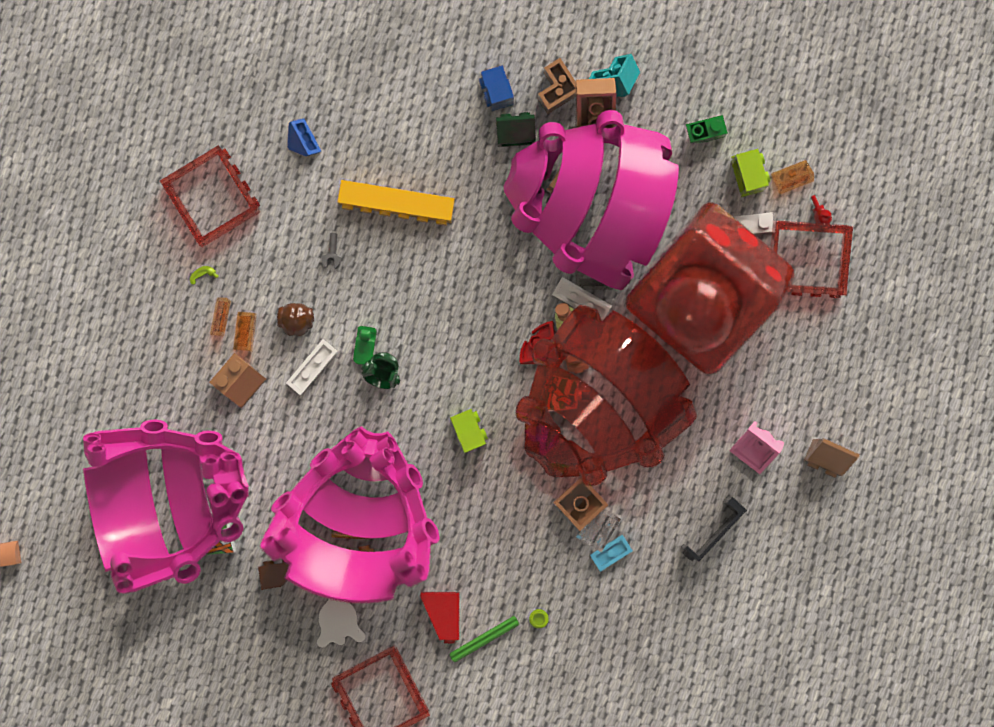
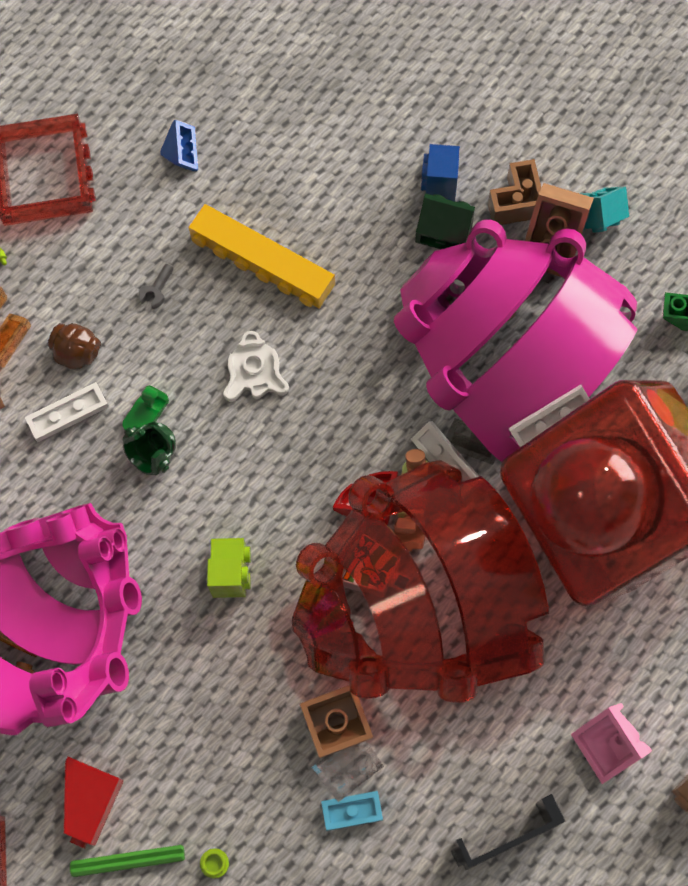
camera: 25 degrees right, 15 degrees down
(425, 285) = (254, 368): none -> white tile
(646, 255) = (548, 415): none -> white plate

